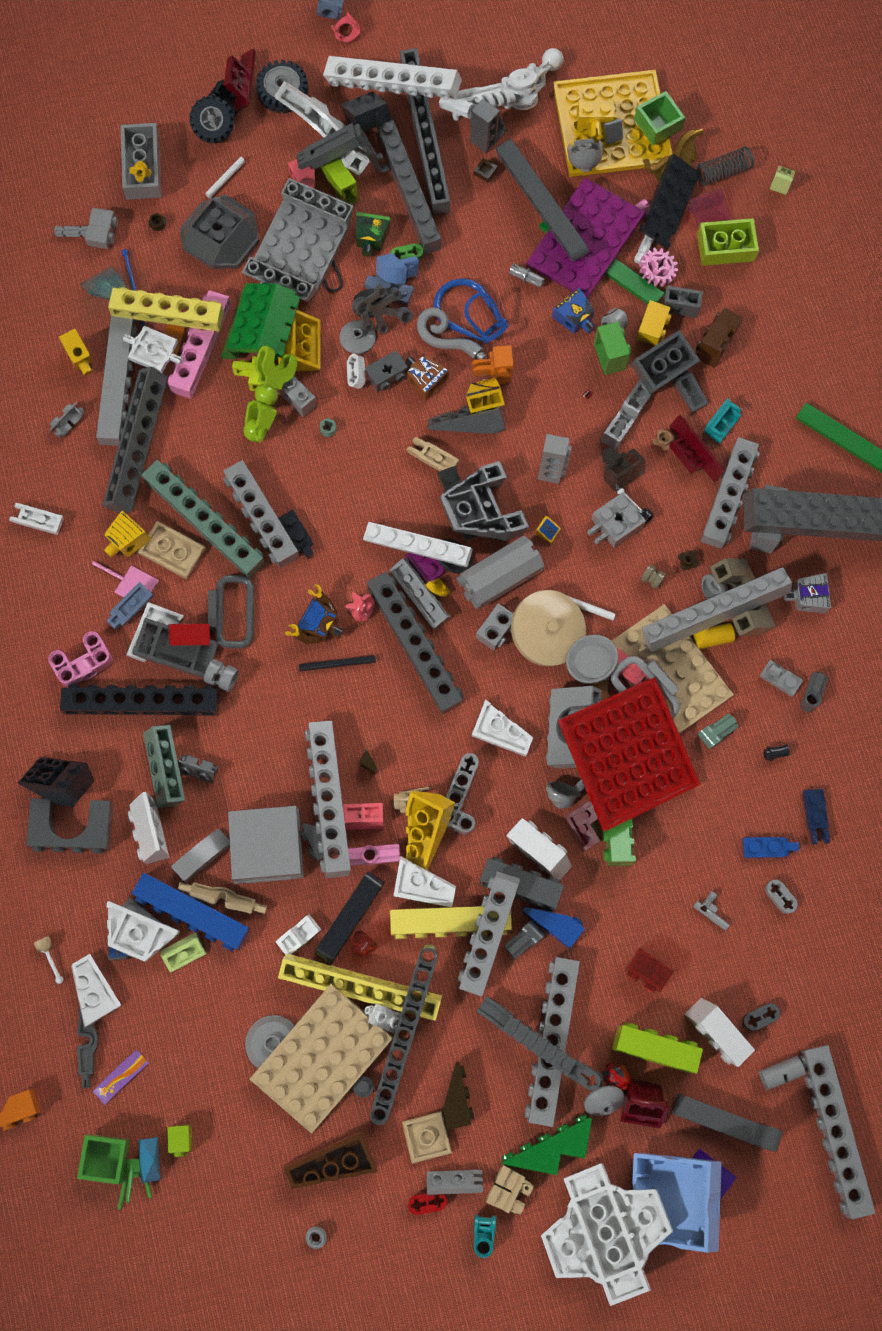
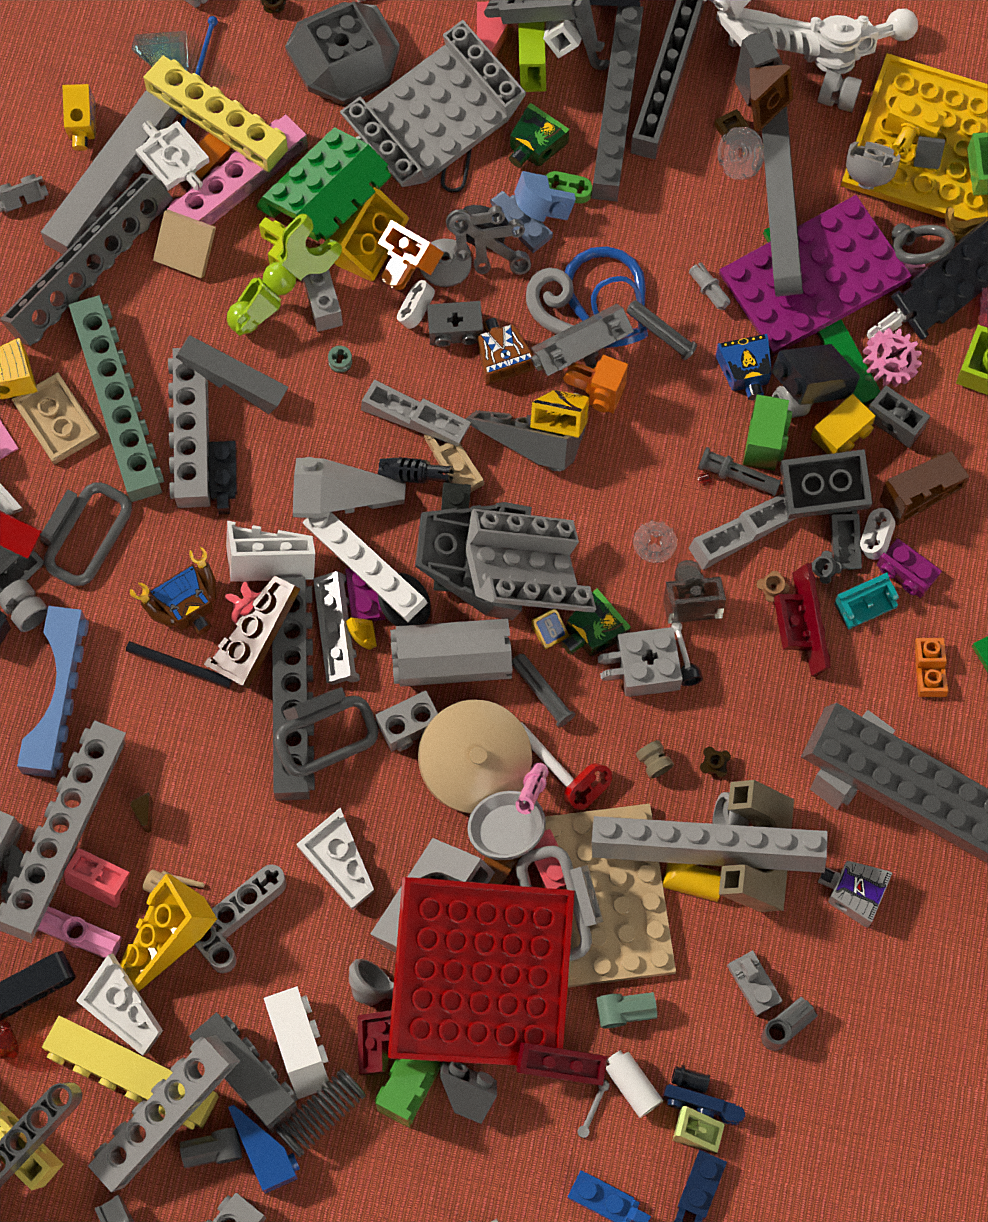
camera: 30 degrees right, 5 degrees down
(191, 401) = (184, 243): none -> tan tile
(262, 468) = (224, 369): none -> dark grey slope
(283, 755) = (42, 746): none -> medium blue arch
(334, 341) = (407, 253): none -> orange brick
(354, 570) = (262, 555): none -> white wedge
(370, 508) = (332, 486): none -> light grey wedge
(376, 621) = (249, 643): none -> wing
(394, 439) = (416, 415): none -> light grey slope
(413, 474) = (414, 470): none -> black hinge
(440, 648) = (314, 711): none -> dark grey bar
(473, 344) = (581, 340): none -> dark grey brick
(496, 189) = (731, 153): none -> clear plate
(501, 137) = (770, 92): none -> reddish brown slope
(515, 315) = (661, 329): none -> dark grey axle
(515, 497) = (525, 561): none -> light grey slope
(538, 118) = (833, 84): none -> light grey wheel
(554, 459) = (599, 537): light grey brick -> none
(565, 569) = (542, 690): none -> dark grey axle
(574, 514) = (596, 629): none -> dark green torso
(583, 453) = (655, 553): none -> clear gear
(584, 859) = (344, 1078): none -> dark grey piece
(594, 627) = (533, 785): none -> bright pink pin
(597, 381) = (724, 467): none -> dark grey pin
(622, 298) = (815, 374): none -> black brick
(623, 613) = (587, 785): none -> red beam
(624, 189) = (905, 235): none -> dark grey piece
(658, 825) = (468, 1091): none -> dark grey slope
(693, 410) = (833, 567): none -> dark grey plate
(701, 782) = (561, 1064): none -> dark red plate
(704, 378) = (873, 532): none -> white beam
(712, 534) = (868, 650): light grey brick -> none
(731, 815) = (583, 1131): none -> light grey hinge
(735, 390) = (908, 568): none -> magenta bracket
(746, 772) = (633, 1083): none -> white brick
(779, 442) = (930, 667): none -> orange slope
(794, 763) = (707, 1105): none -> dark blue hinge
(796, 779) = (698, 1130): none -> yellowish green slope

